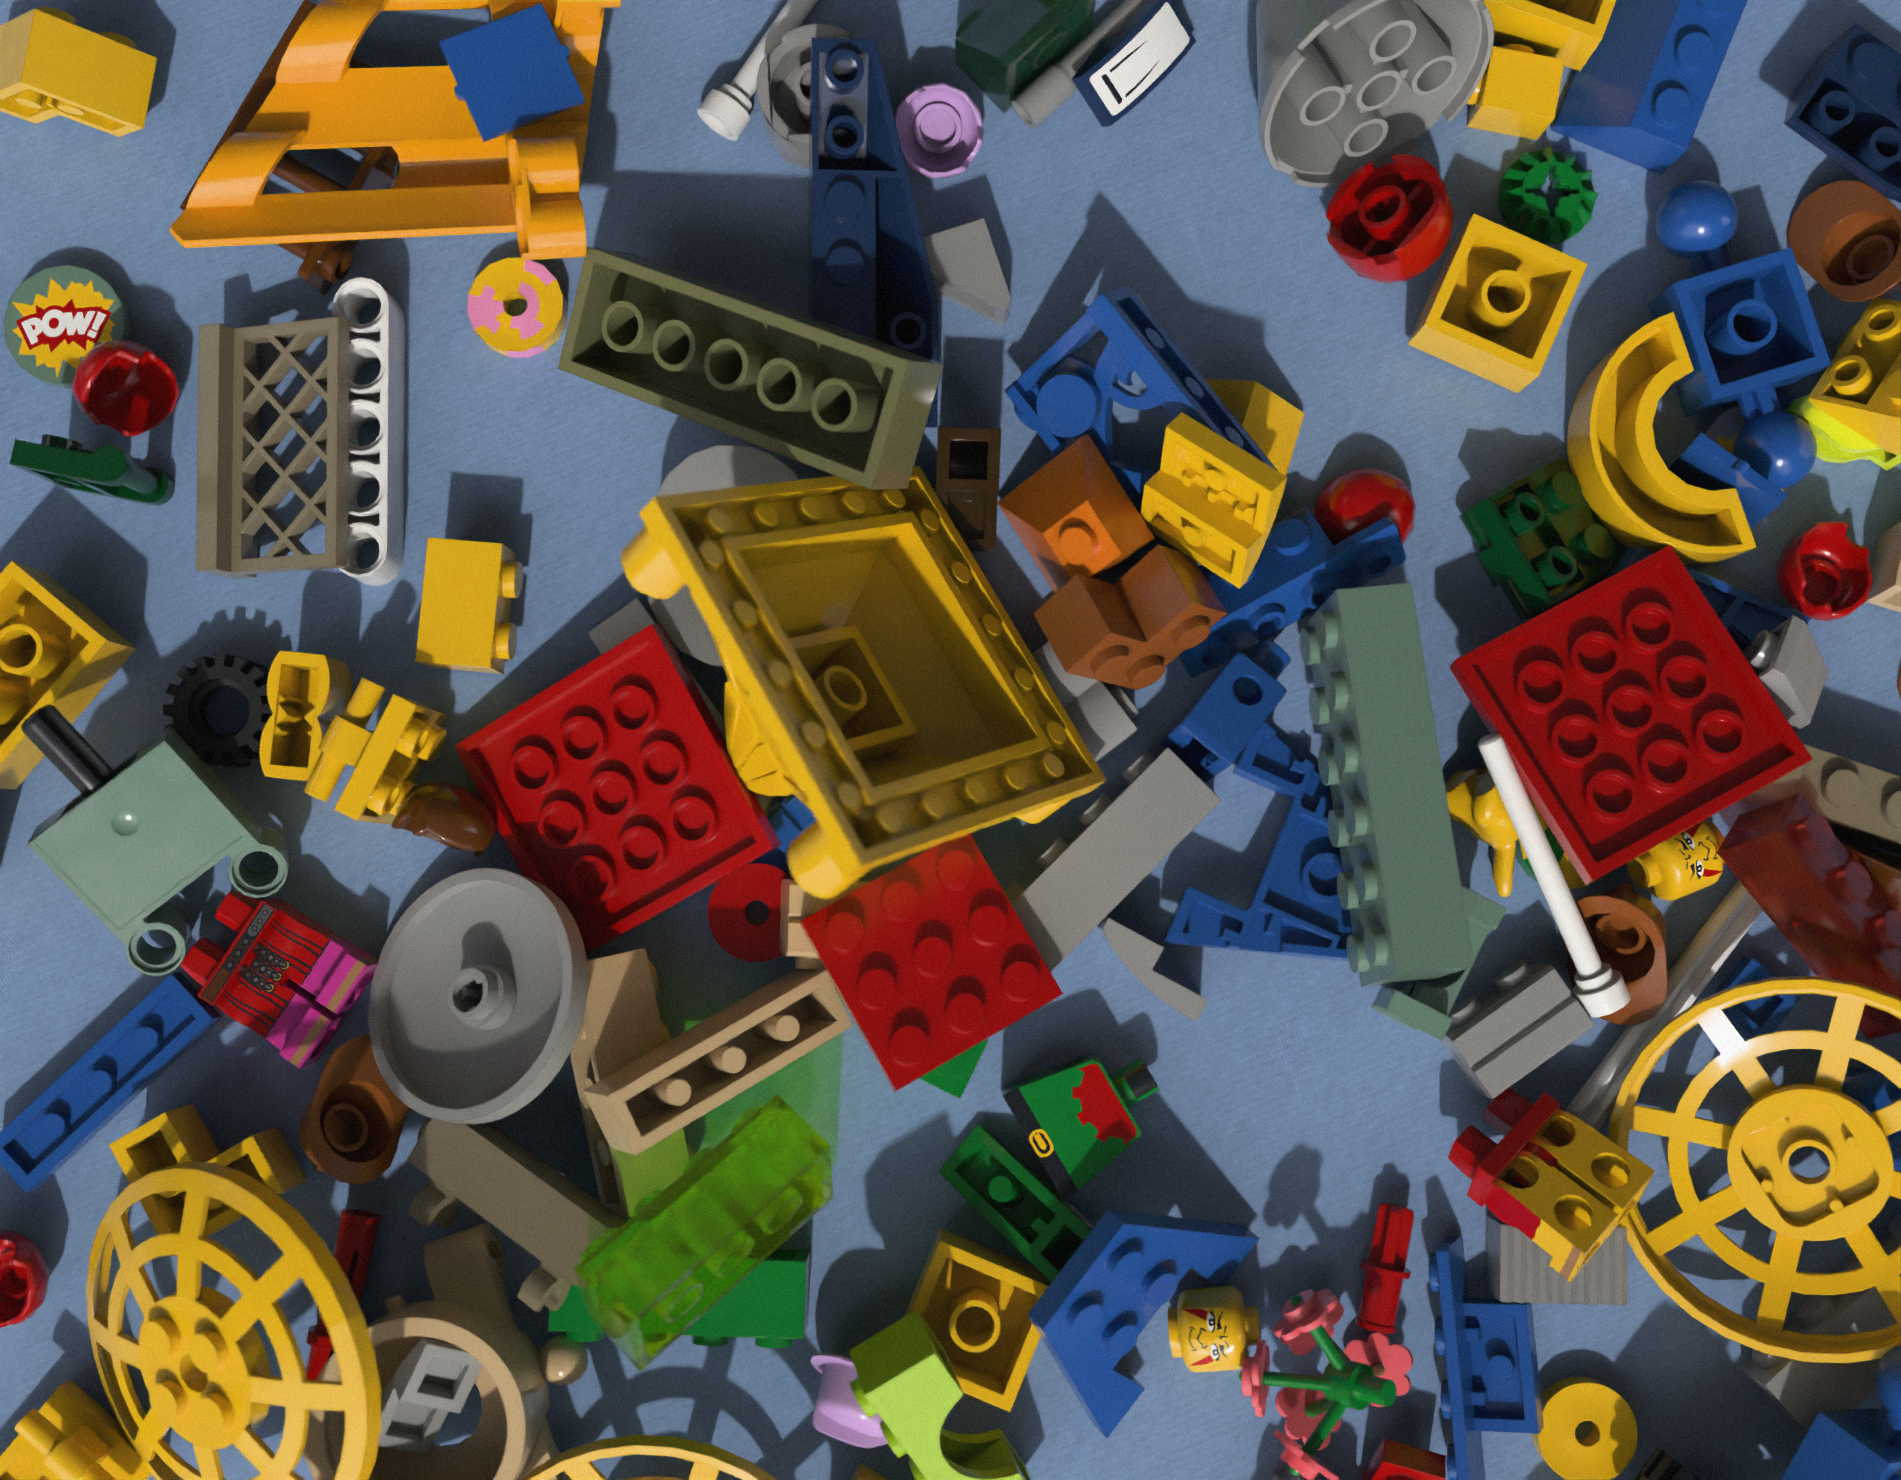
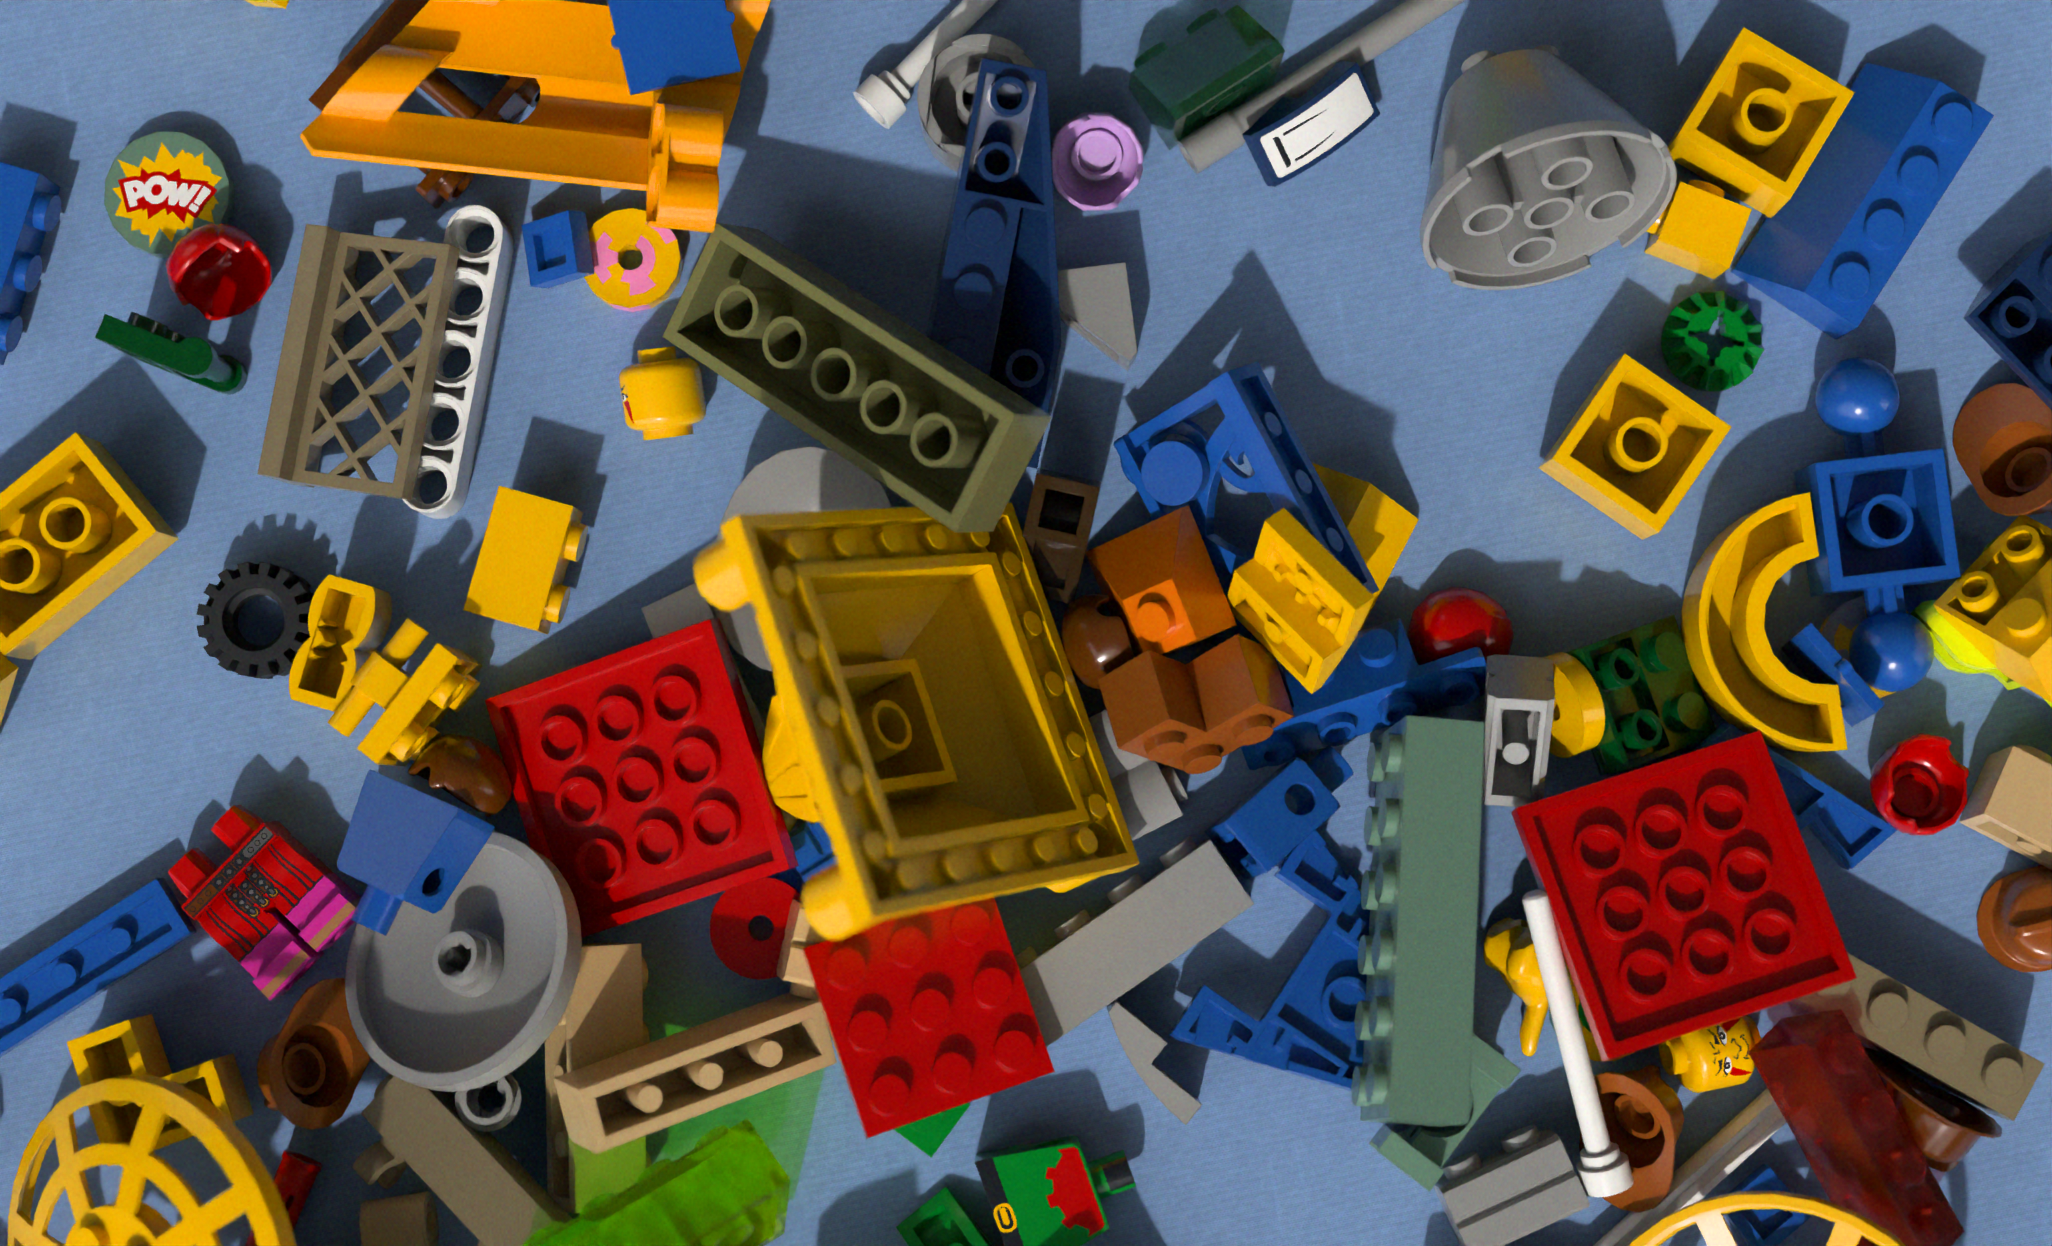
camera: 10 degrees right, 0 degrees up
(145, 835) = (160, 736): sand green piece -> none
(404, 900) = (406, 849): none -> blue torso
(445, 308) = (558, 249): none -> blue tile
(512, 1133) = (475, 1114): none -> light grey cone
(569, 425) = (662, 394): none -> yellow head
(1022, 578) = (1093, 641): none -> reddish brown hair
(1391, 219) = (1541, 341): red cylinder -> none
(1440, 565) = (1517, 728): none -> light grey brick
(1476, 558) = (1578, 708): none -> yellow piece
(1789, 669) = (1855, 883): light grey slope -> none

